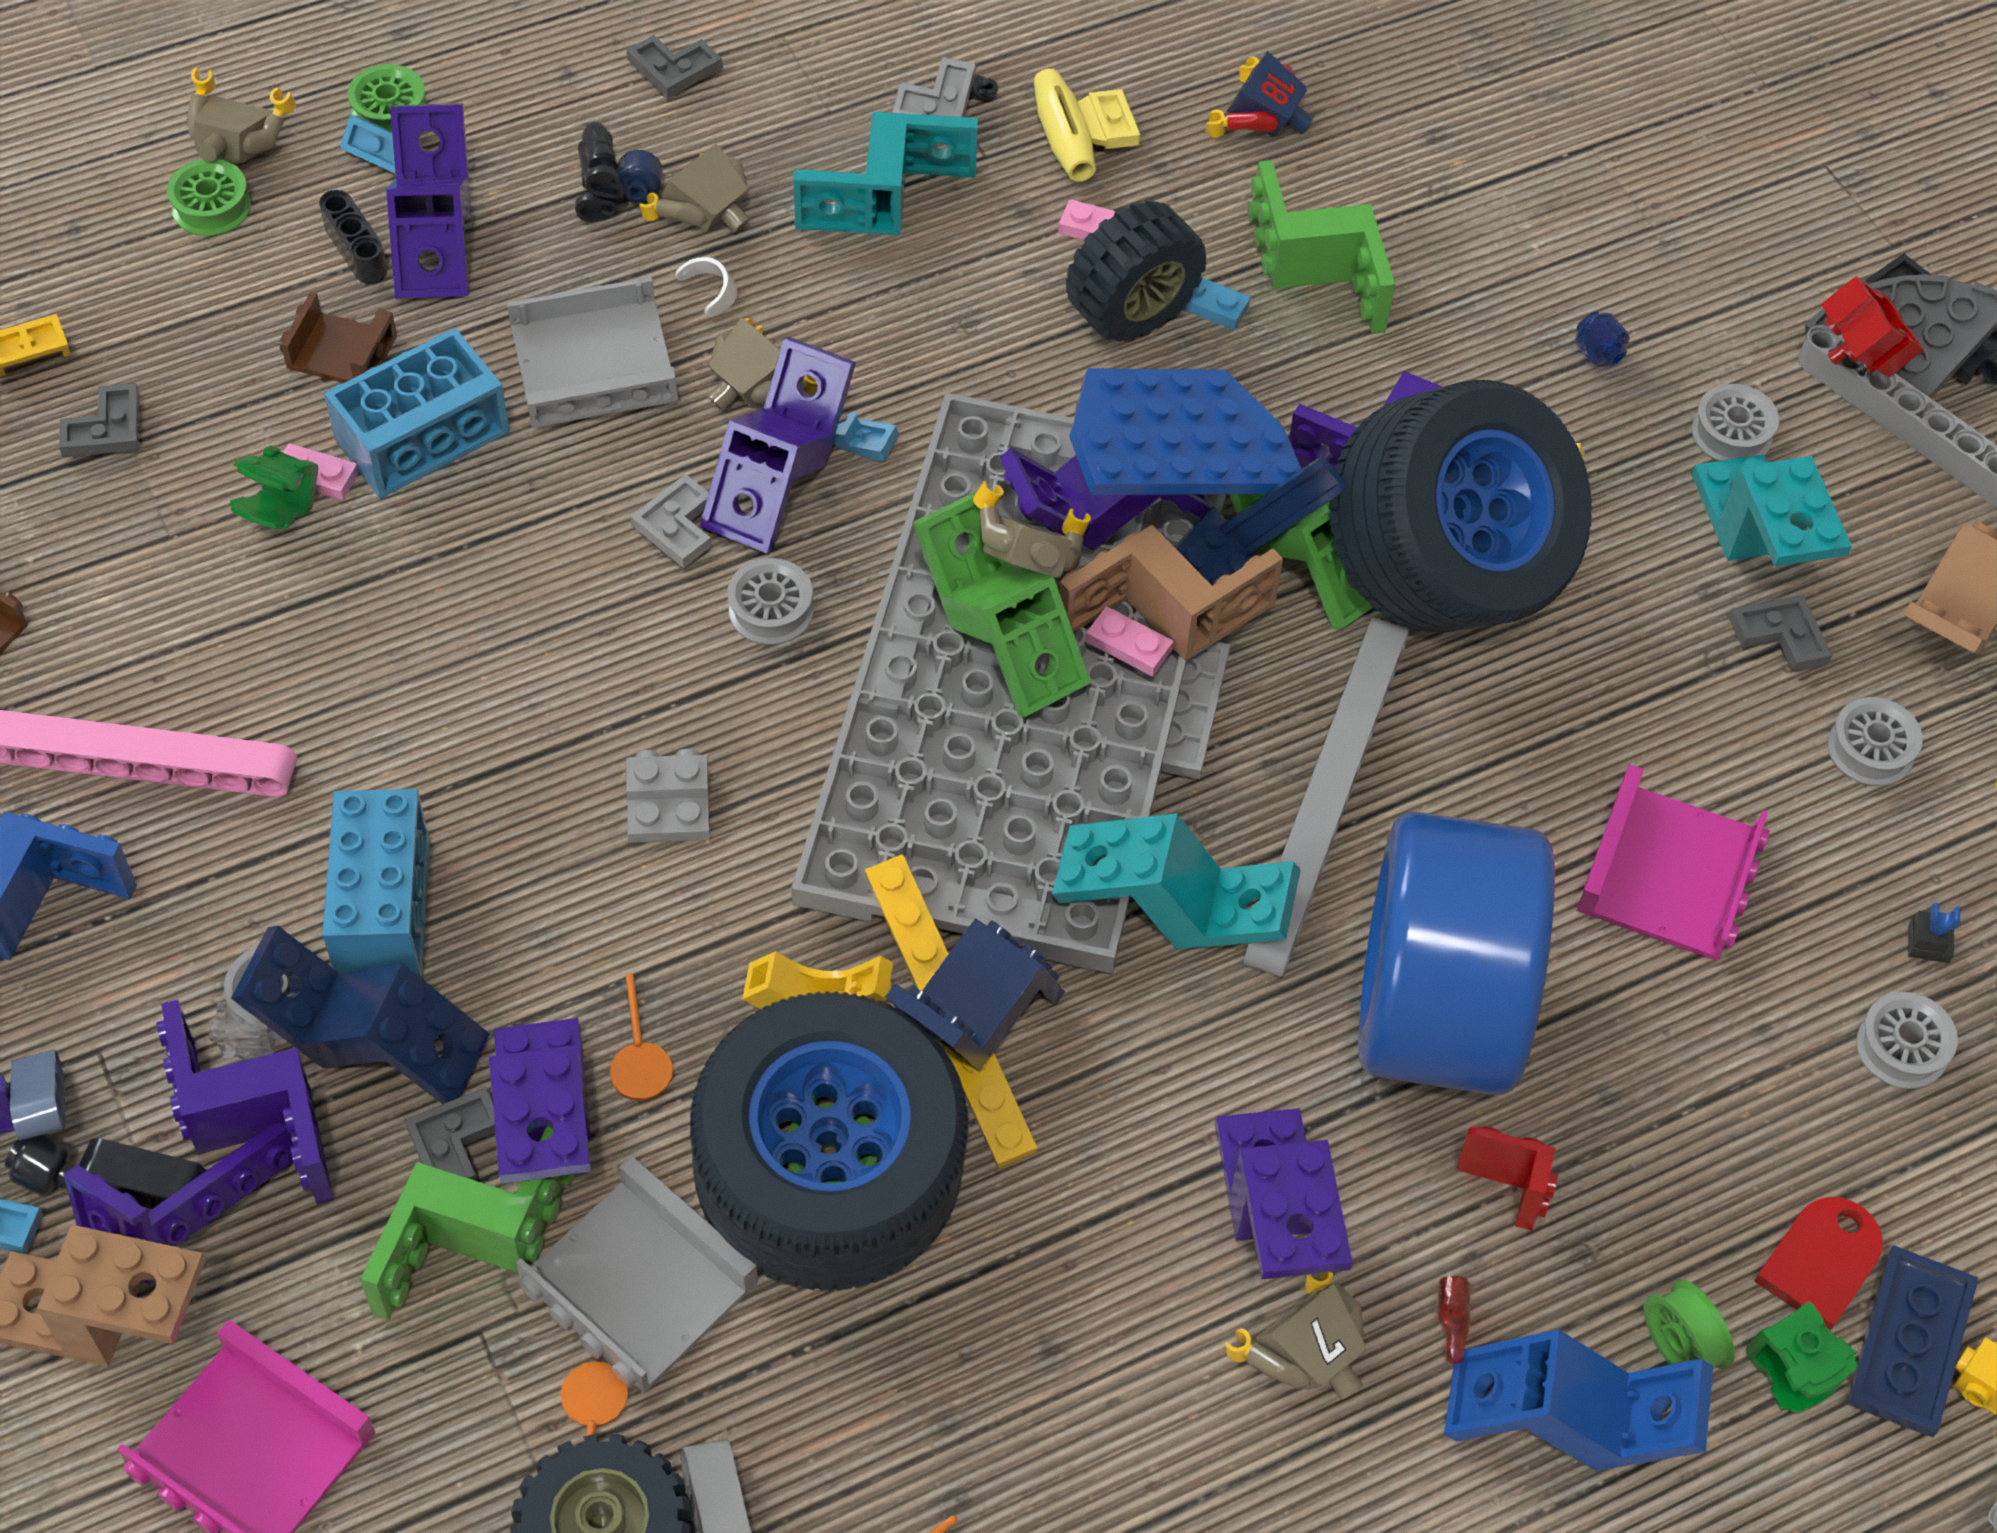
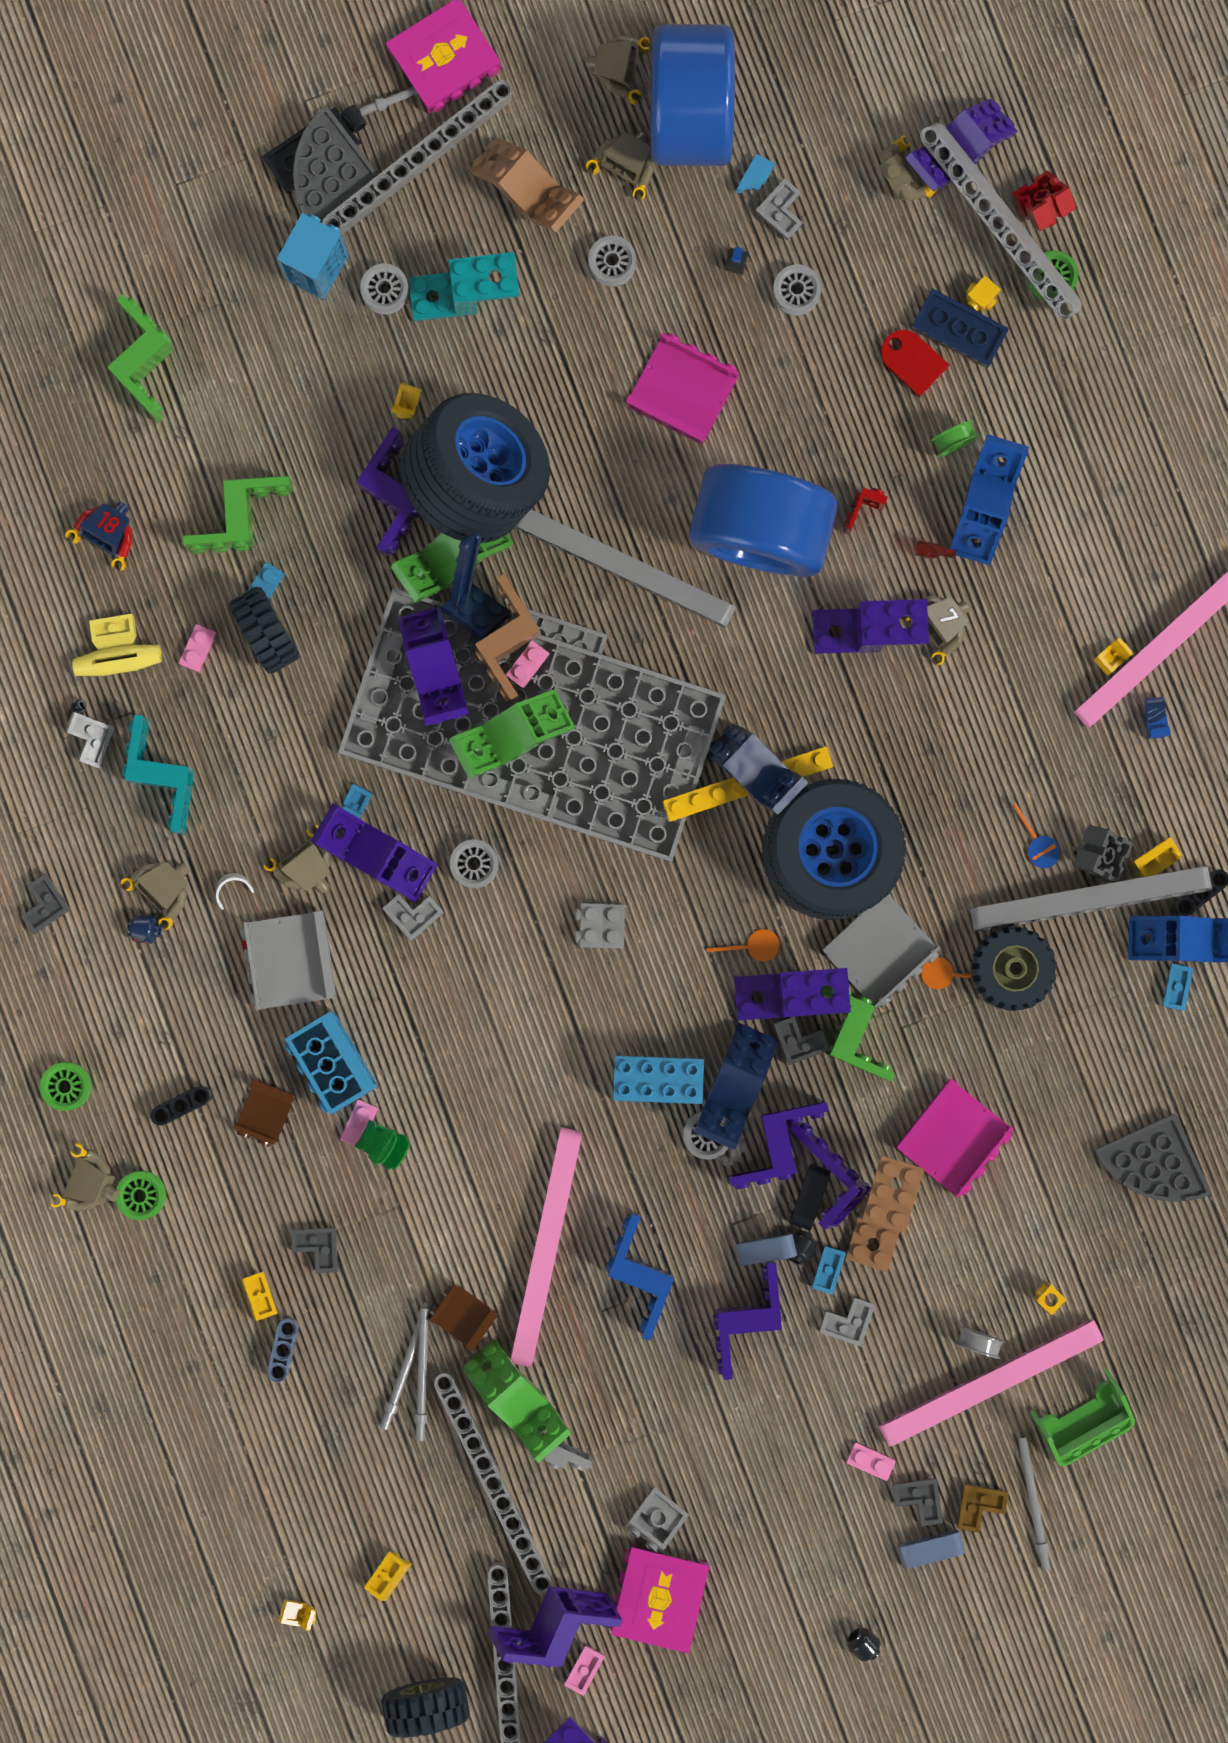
camera: 80 degrees left, 30 degrees up
(369, 142) = (104, 1092): dark azure plate -> none
(429, 201) = (167, 1057): dark purple bracket -> none
(598, 175) = (138, 953): black piece -> none
(779, 978) = (731, 850): yellow arch -> none
(1028, 544) = (488, 713): dark tan torso -> none
(1176, 434) = (418, 621): blue plate -> none
(1177, 882) = (688, 657): teal bracket -> none
(1542, 118) = (141, 357): none -> bright green bracket
(1602, 339) = (317, 355): clear blue head -> none
(1765, 295) = (313, 255): none -> dark azure brick
(1784, 621) = (530, 290): dark grey plate -> none
(1801, 1359) = (970, 385): green piece -> none
(1870, 329) = (344, 198): red brick -> none

